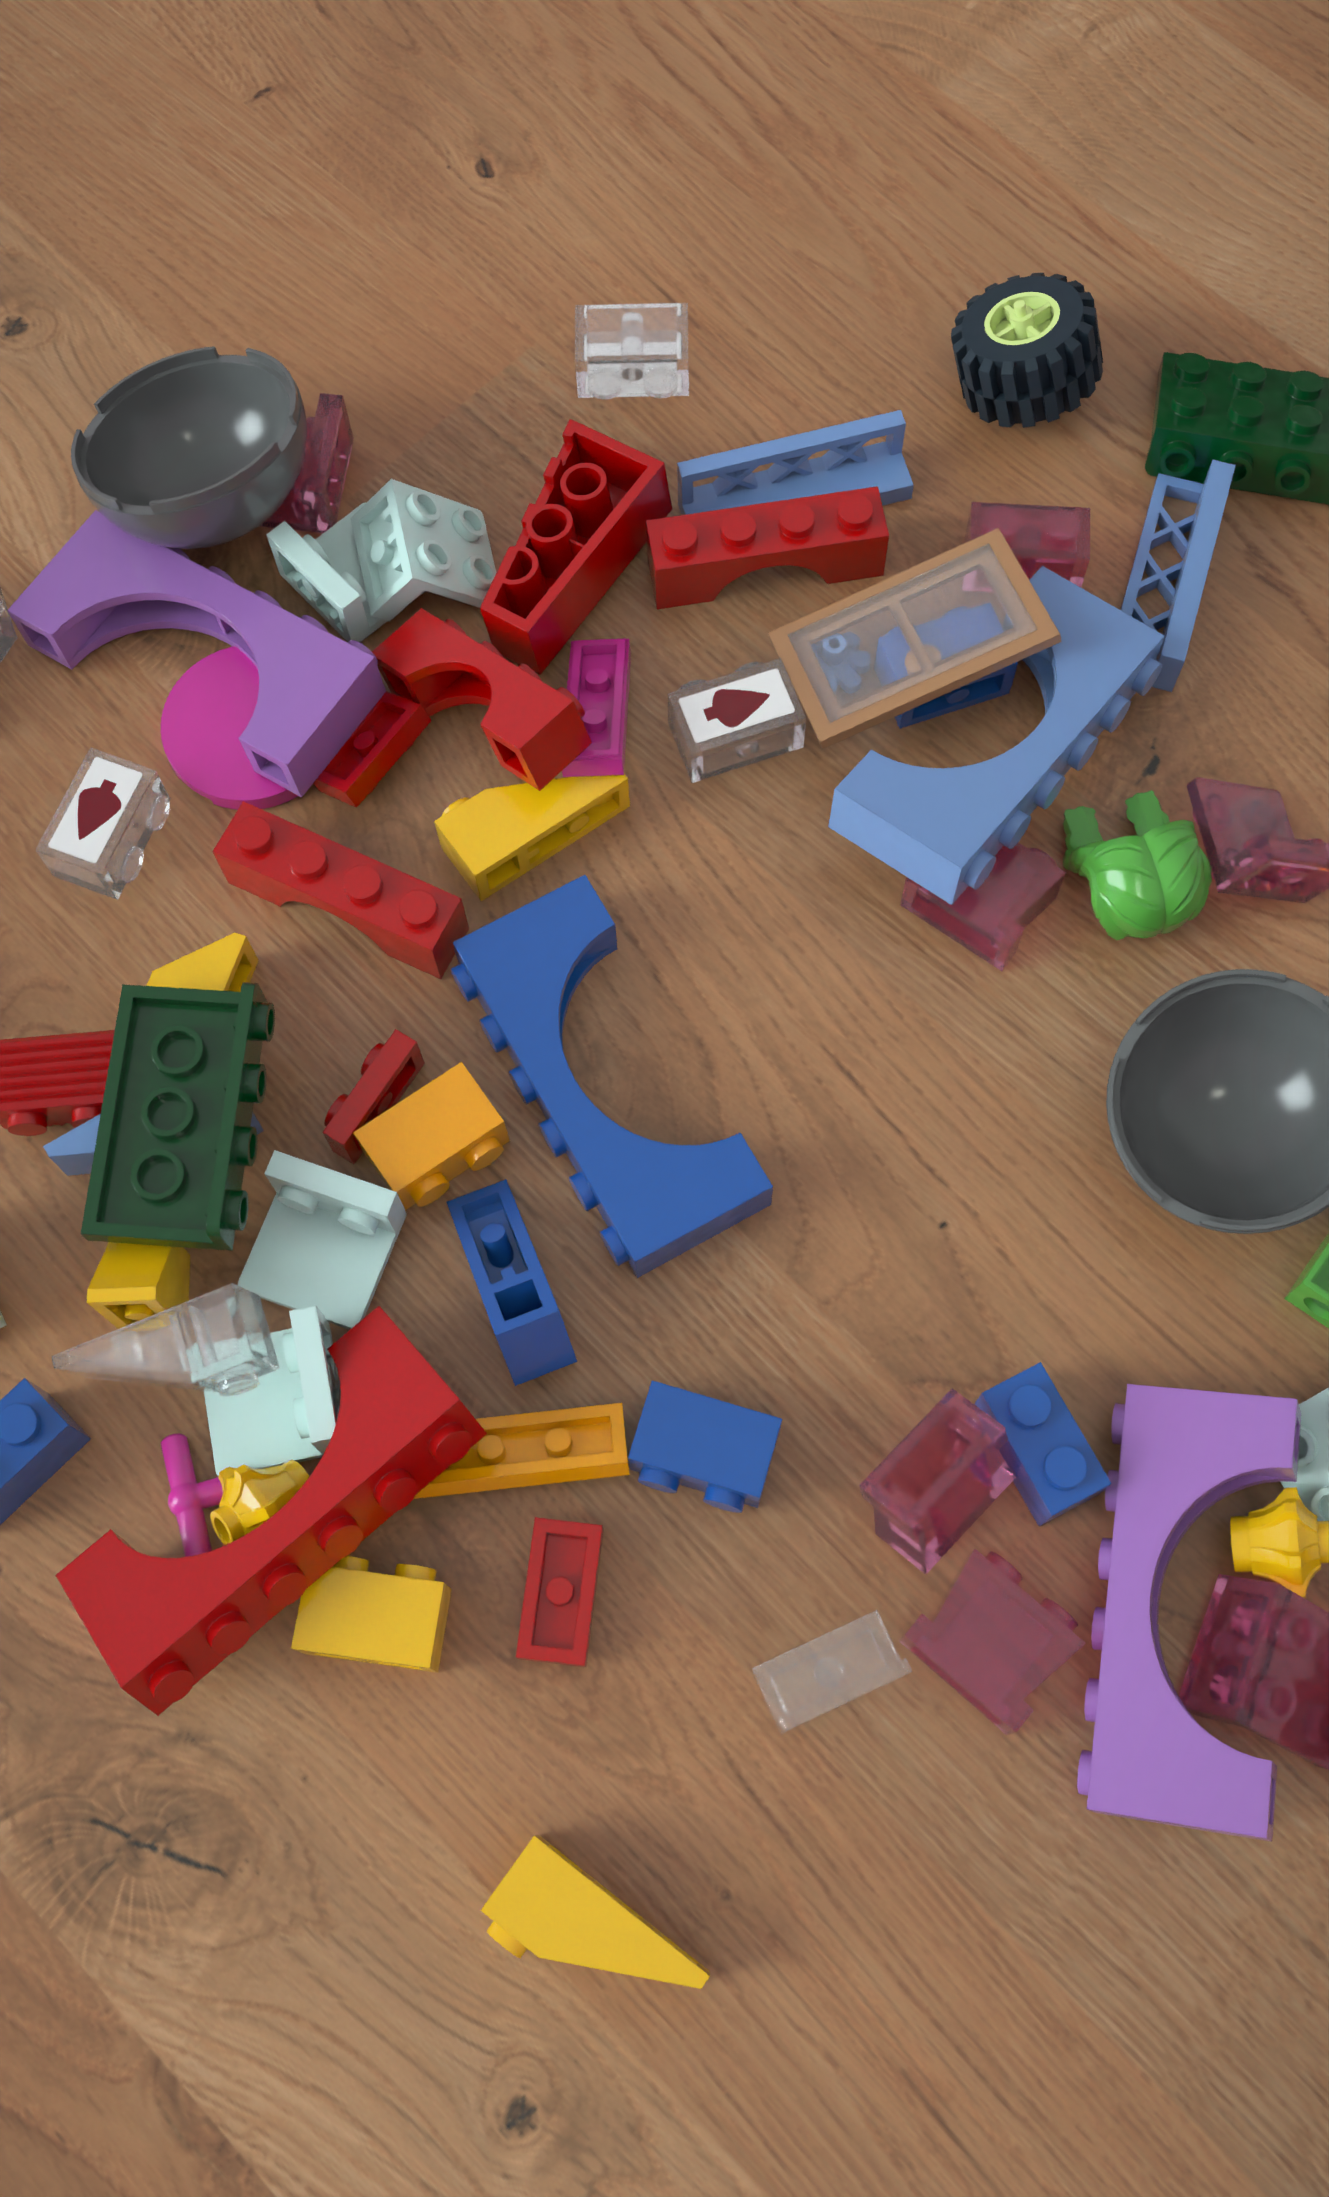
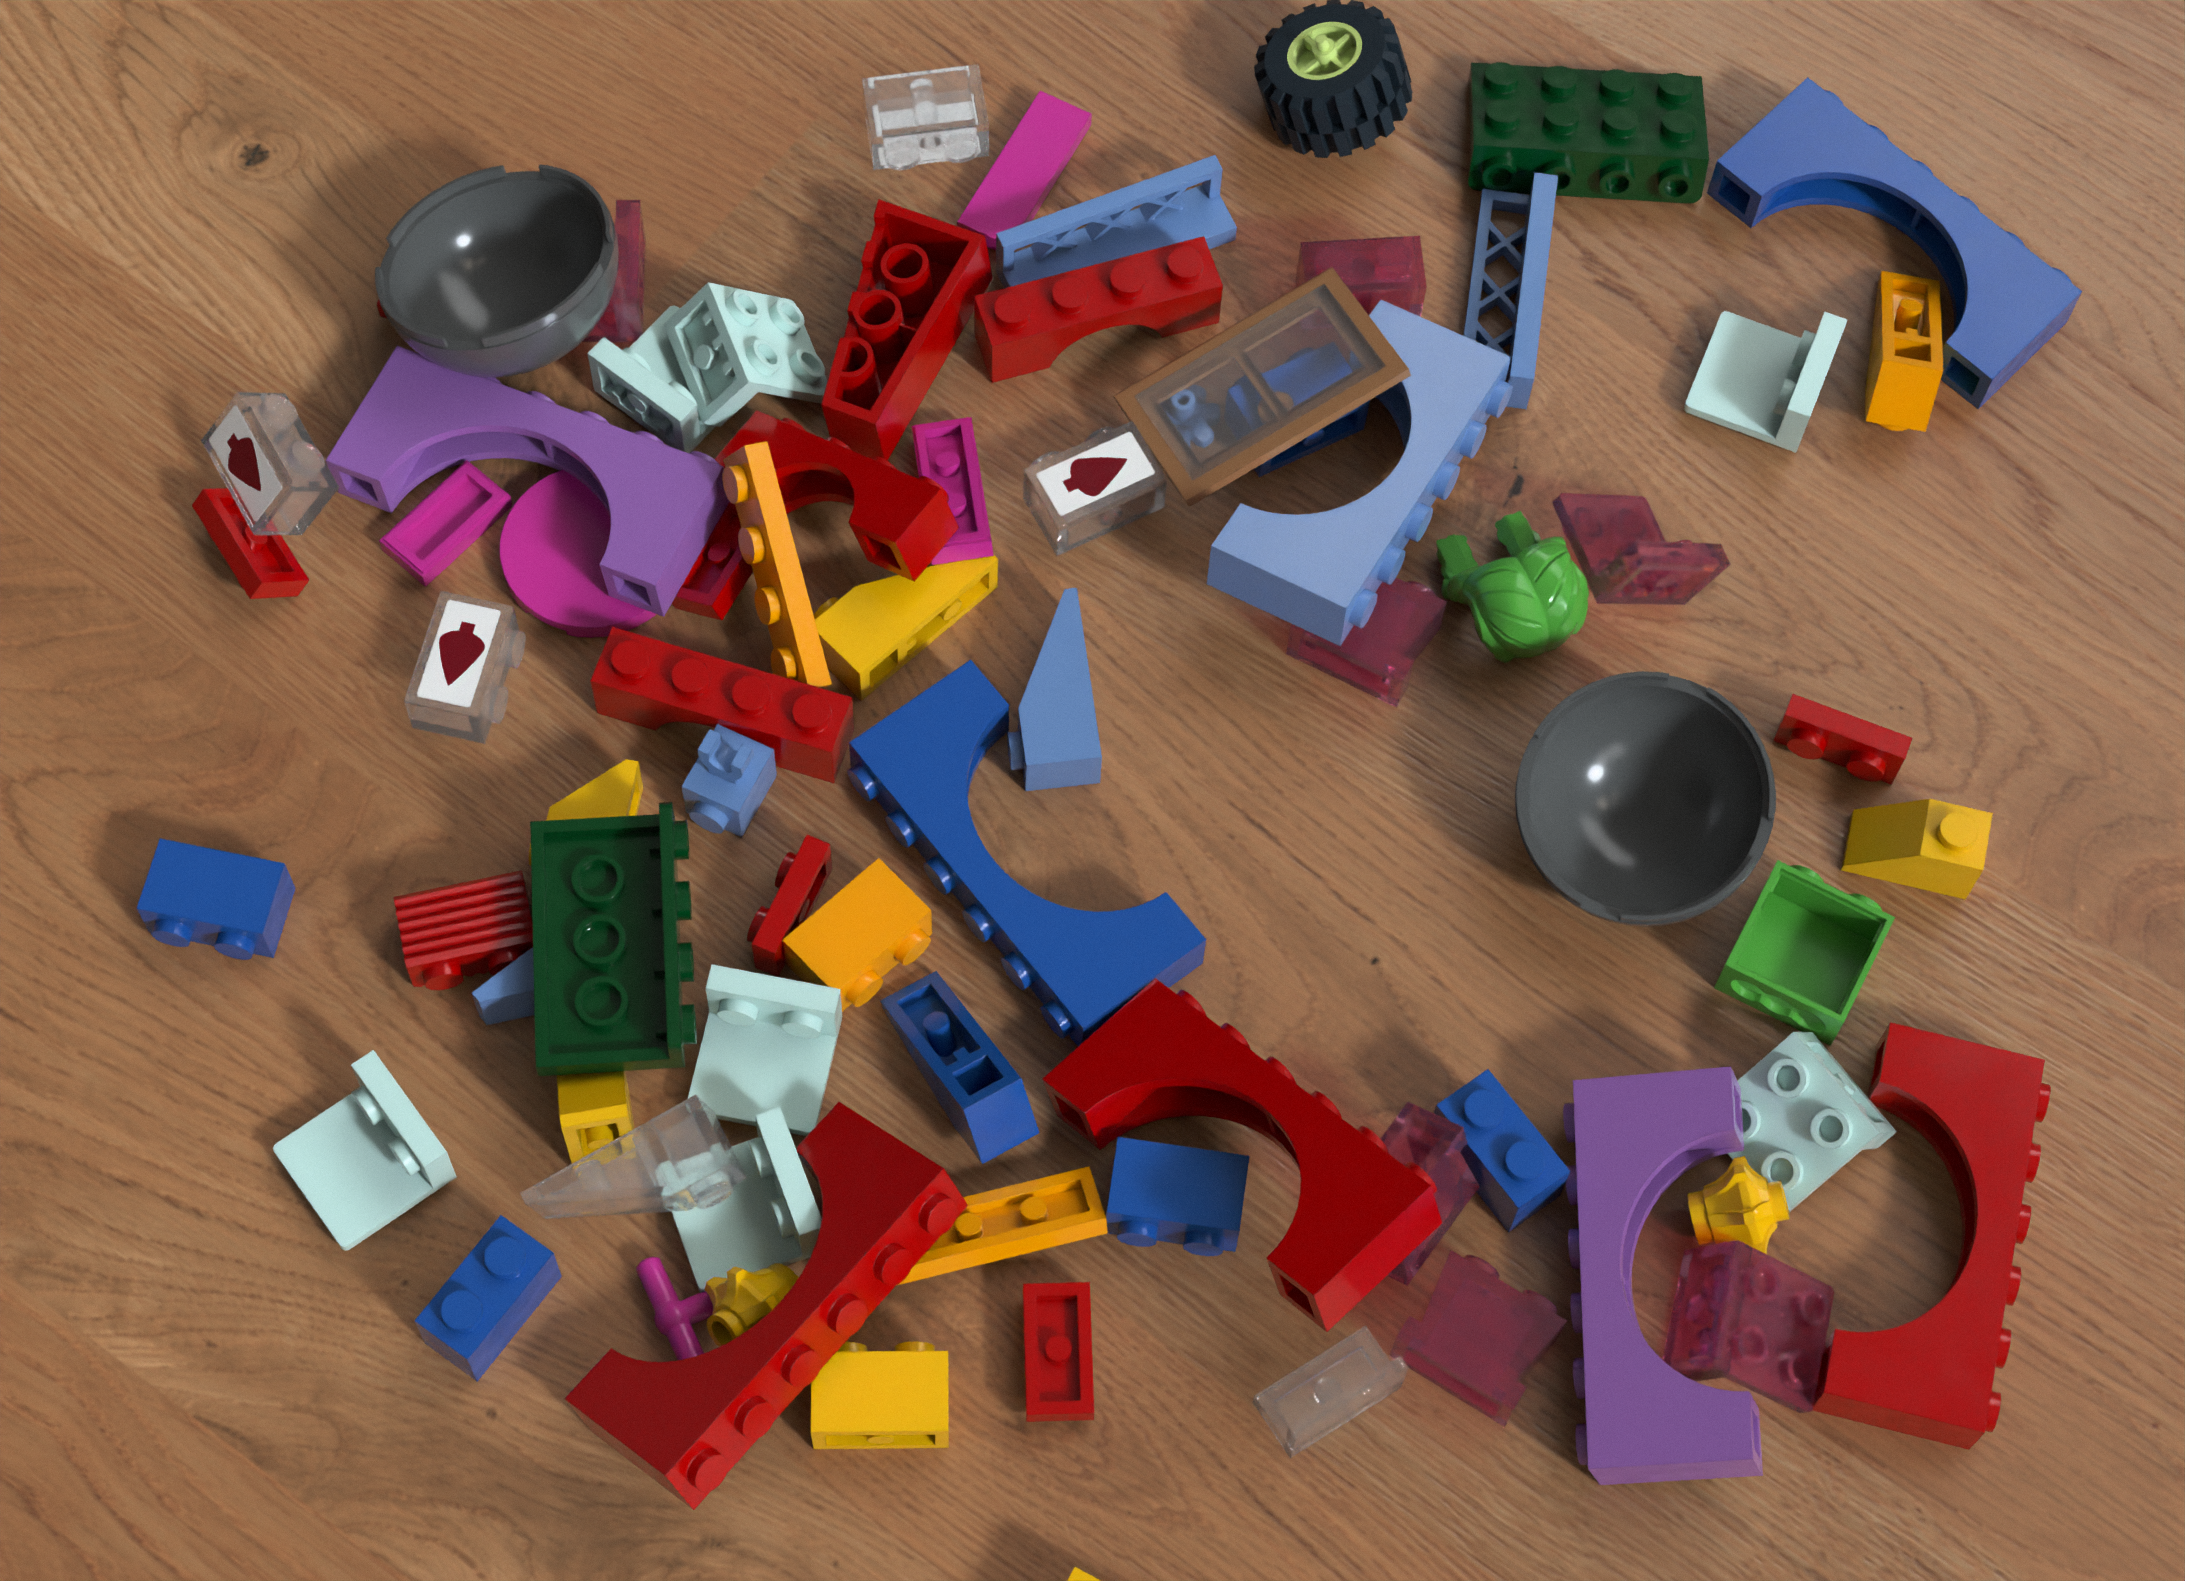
camera: 15 degrees left, 5 degrees down
(119, 684) = (446, 523): none -> dark pink tile
(333, 965) = (728, 781): none -> medium blue brick
(405, 740) = (771, 551): none -> light orange plate
(662, 933) = (1057, 715): none -> medium blue slope
(722, 407) = (1026, 167): none -> dark pink tile
(877, 1499) = (1356, 1201): none -> red arch

